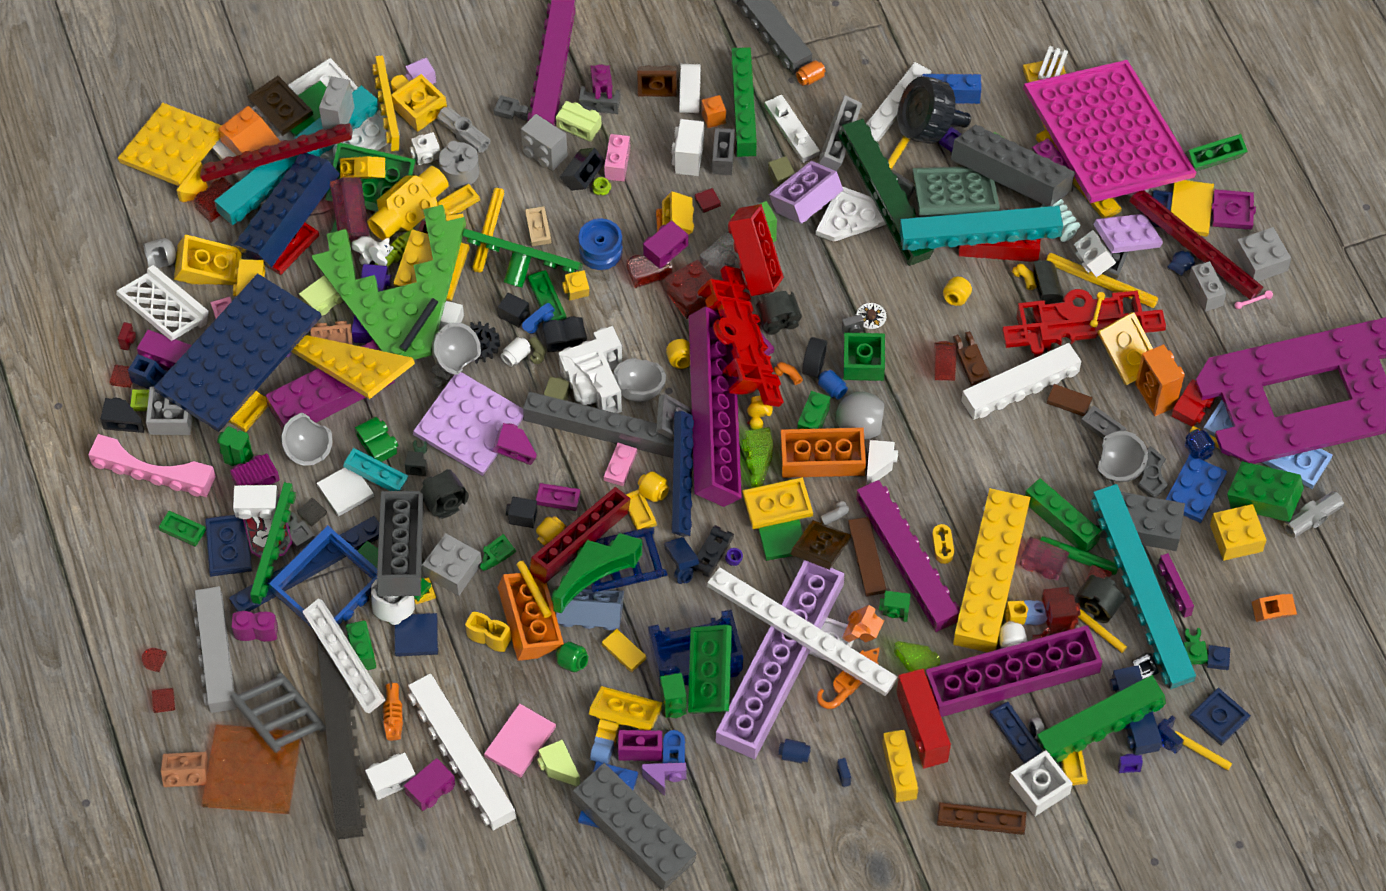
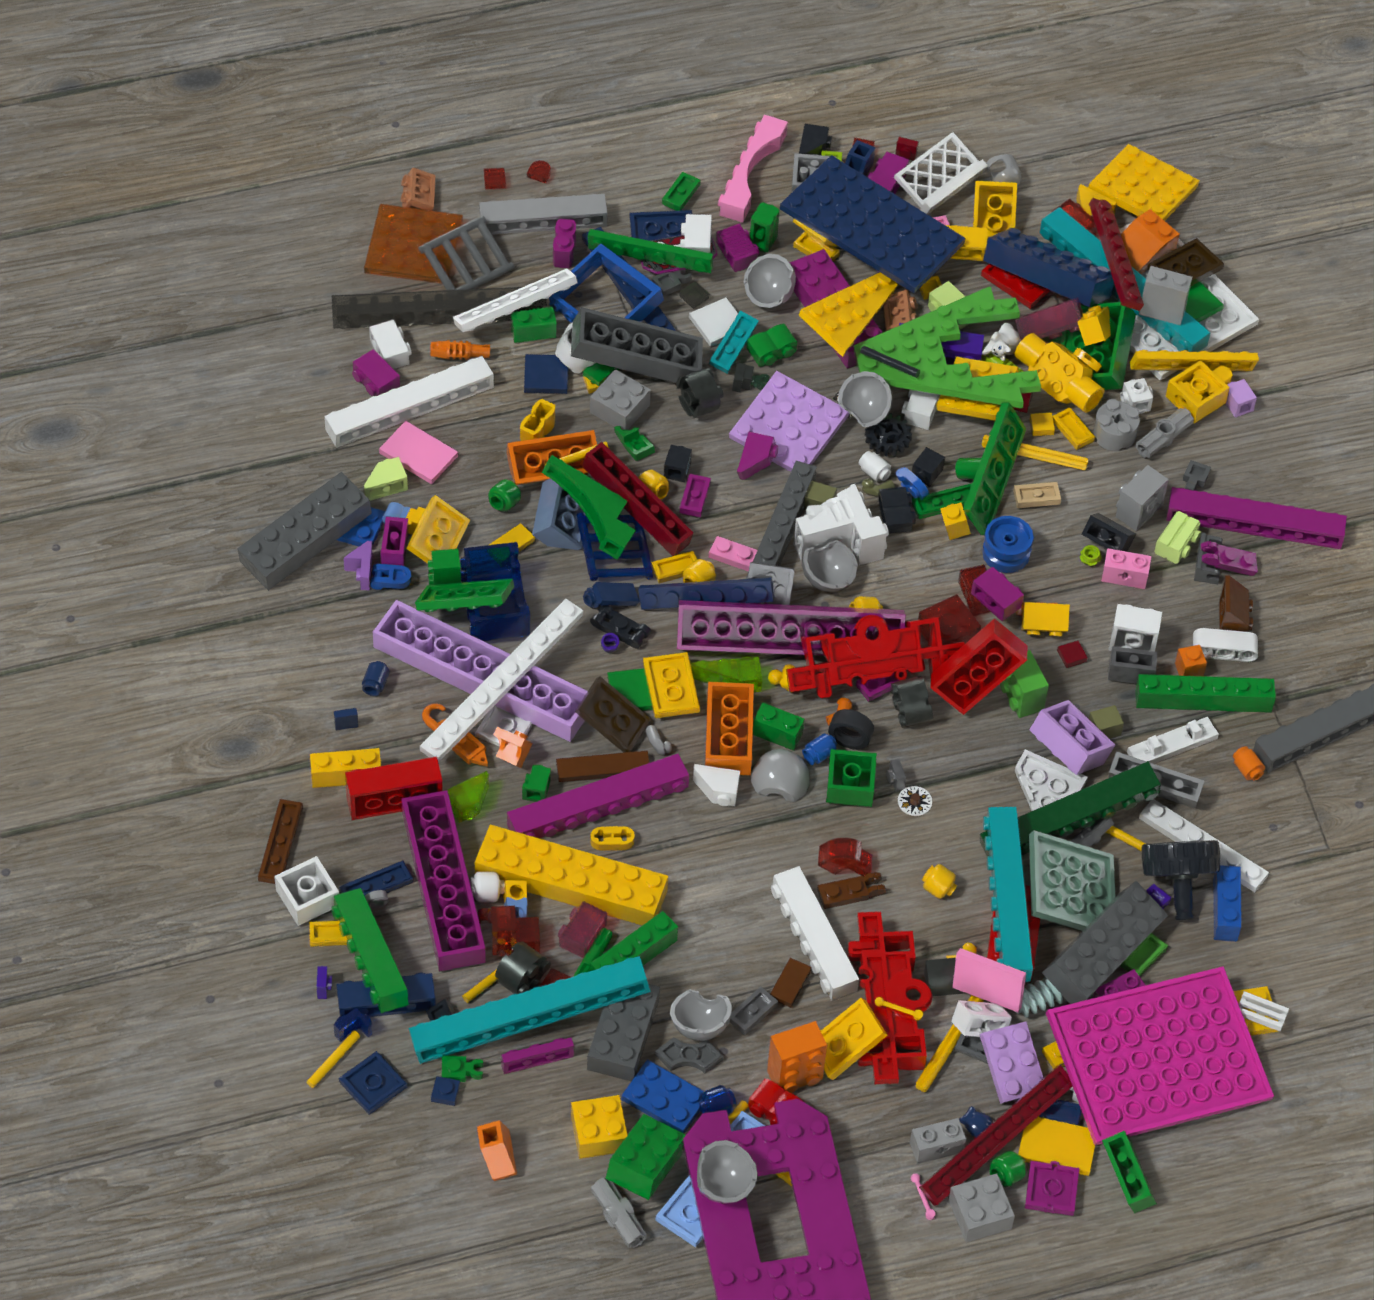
camera: 90 degrees right, 5 degrees down
(397, 177) = (1086, 358): none -> yellow tile
(1066, 241) = (989, 980): none -> bright pink tile
(1223, 238) = (1009, 1168): none -> green head
(1292, 416) = (725, 1172): none -> light grey cylinder

